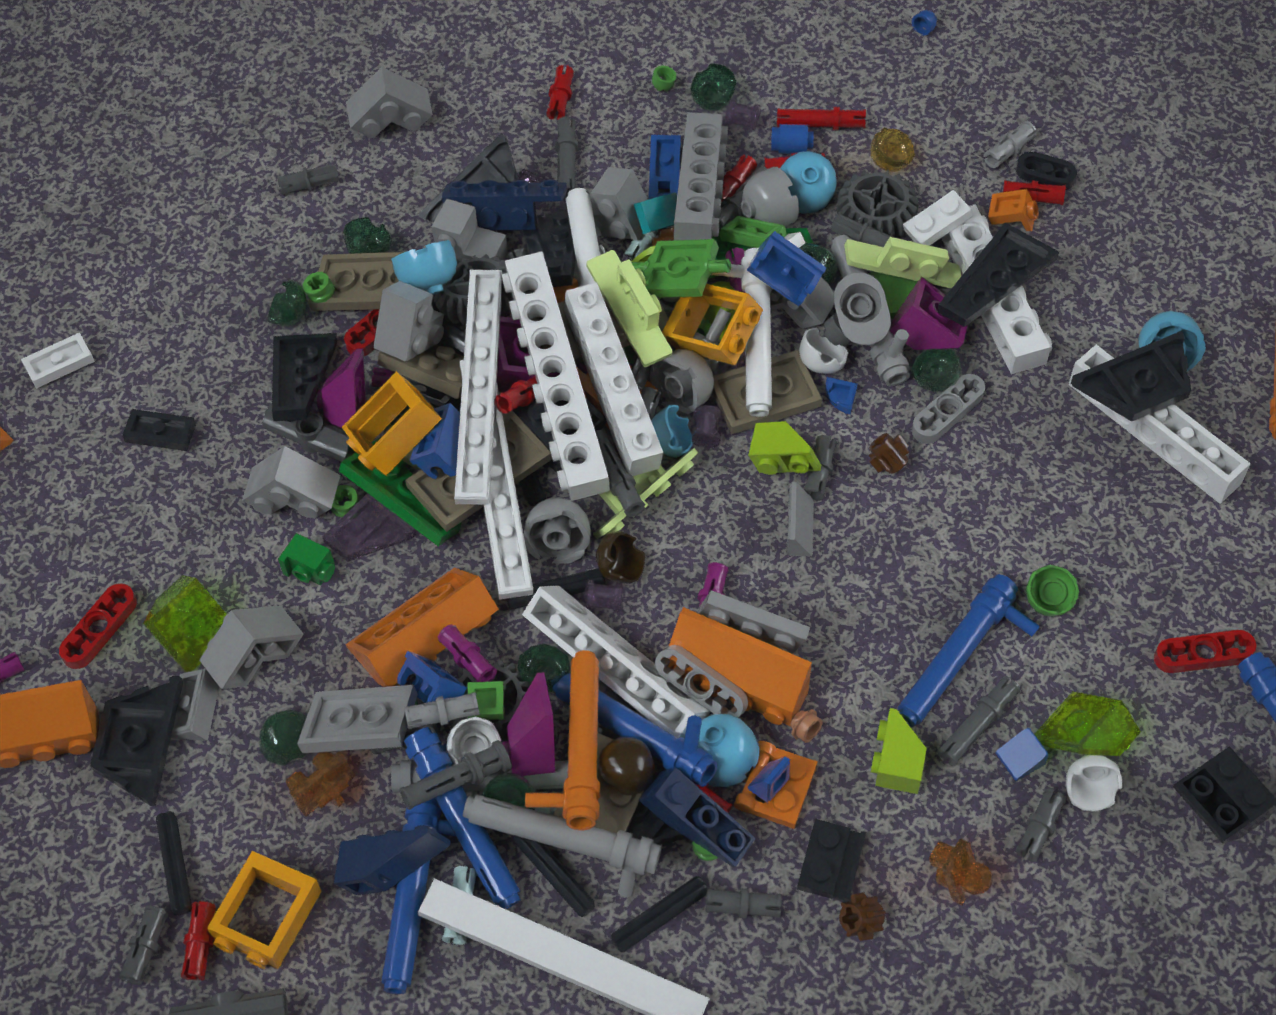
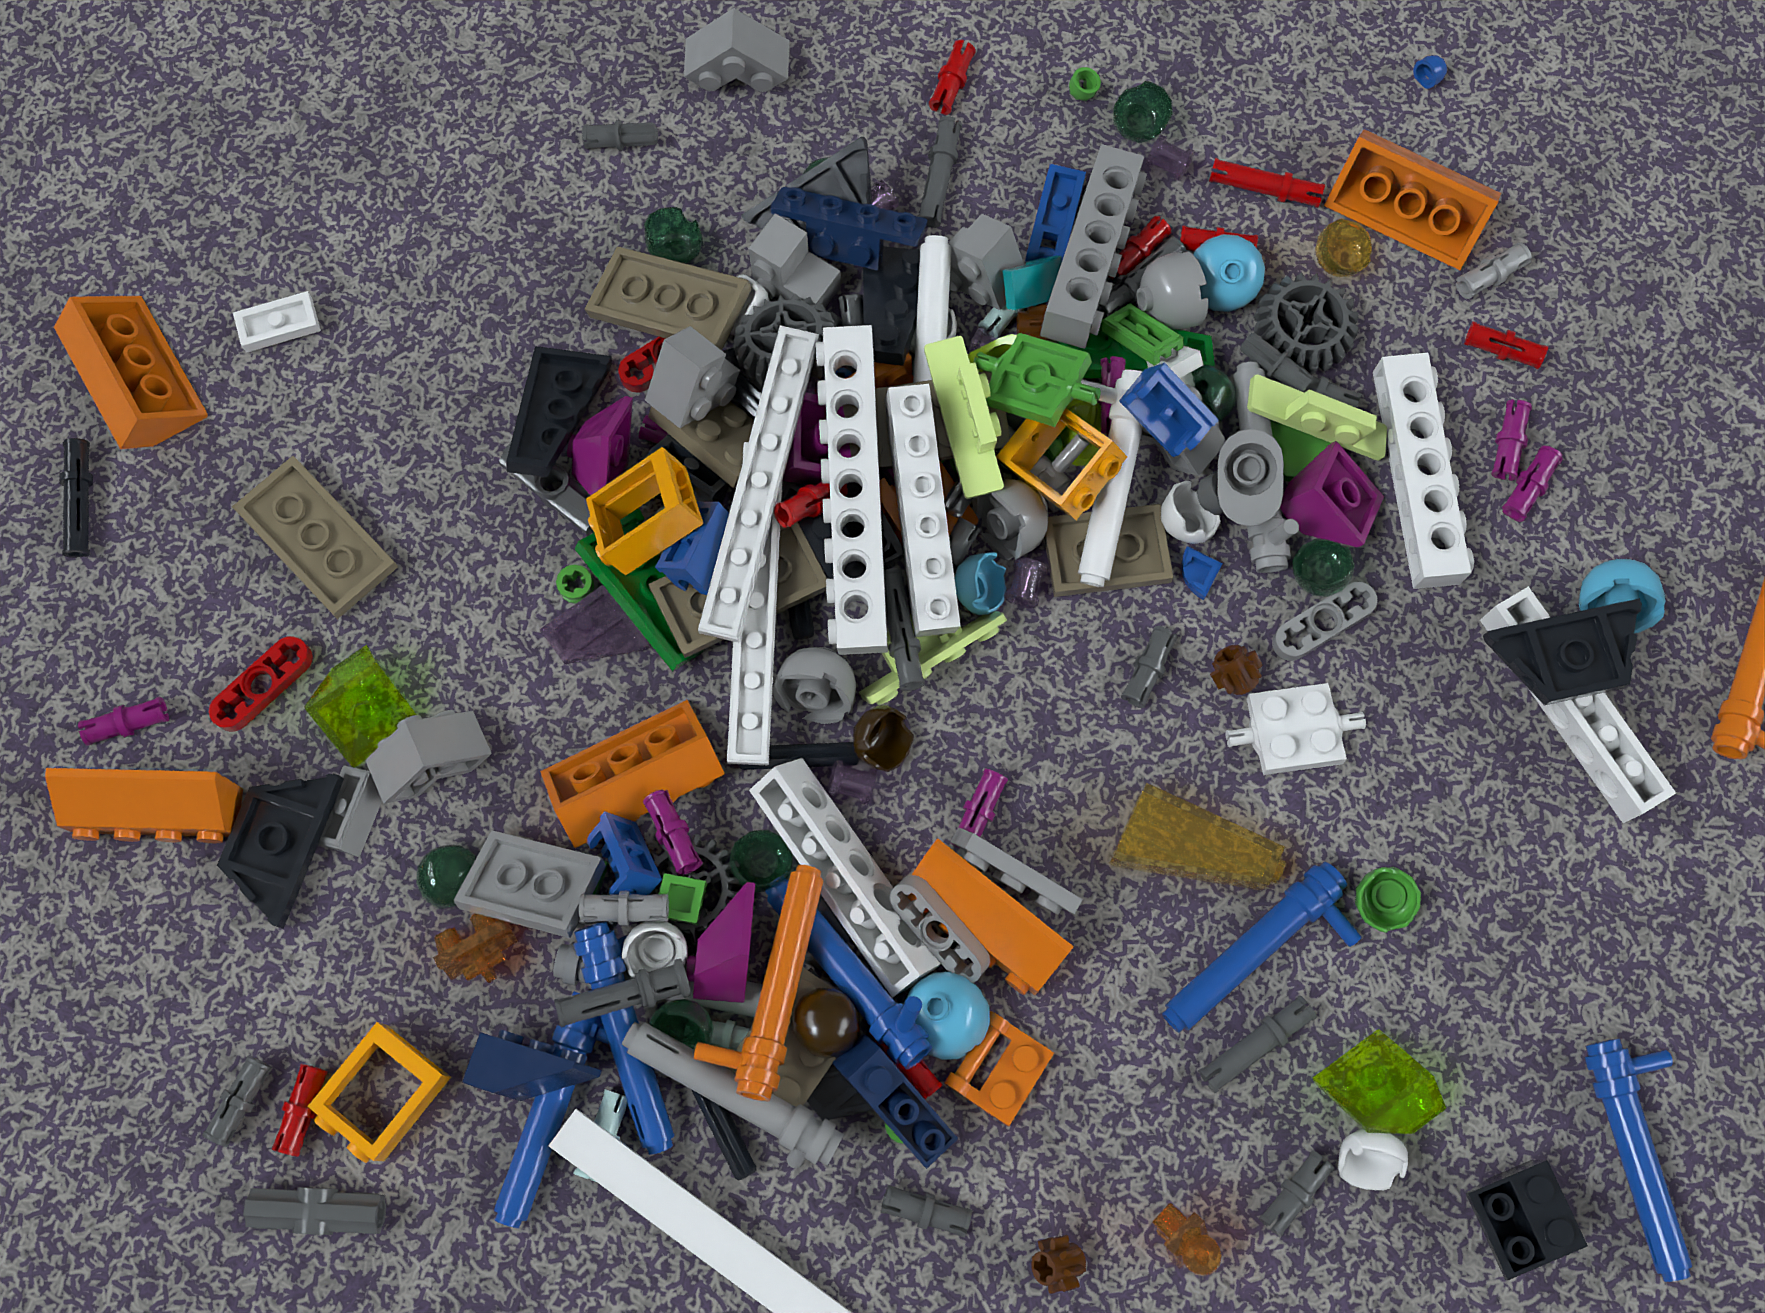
camera: 10 degrees right, 15 degrees up
(122, 508) = (315, 537): none -> dark tan plate
(159, 430) = (378, 442): black plate -> none
(173, 863) = (291, 1005): black axle -> none
(288, 306) = (560, 307): clear green hair -> none
(291, 481) = (514, 553): light grey brick -> none
(307, 560) = (516, 657): green brick -> none
(316, 280) = (605, 302): bright green bush -> none
(427, 267) = (728, 309): medium azure cylinder -> none
(659, 914) = (827, 1199): black axle -> none
(771, 779) = (991, 1068): blue slope -> none
(781, 450) = (1106, 636): lime slope -> none
(791, 138) = (1222, 206): blue brick -> none
(800, 522) = (1108, 734): light grey slope -> none
(806, 725) = (1051, 1002): nougat plate -> none
(831, 861) = (1041, 1179): black plate -> none
(890, 584) = (1192, 843): none -> clear yellow slope
(901, 757) = (1153, 1070): lime slope -> none
(934, 108) = (1412, 199): none -> orange slope
(938, 219) = (1375, 366): white plate -> none
(947, 488) = (1295, 729): none -> white plate
(997, 271) = (1433, 457): black wing -> none
(1013, 207) = (1474, 363): orange bracket -> none
(1022, 754) = (1297, 1099): slope -> none
(1046, 170) = (1529, 316): black plate -> none
(1058, 268) = (1511, 440): none -> magenta pin
(1081, 282) = (1532, 483): none -> magenta pin
(1213, 640) = (1581, 1006): red beam -> none

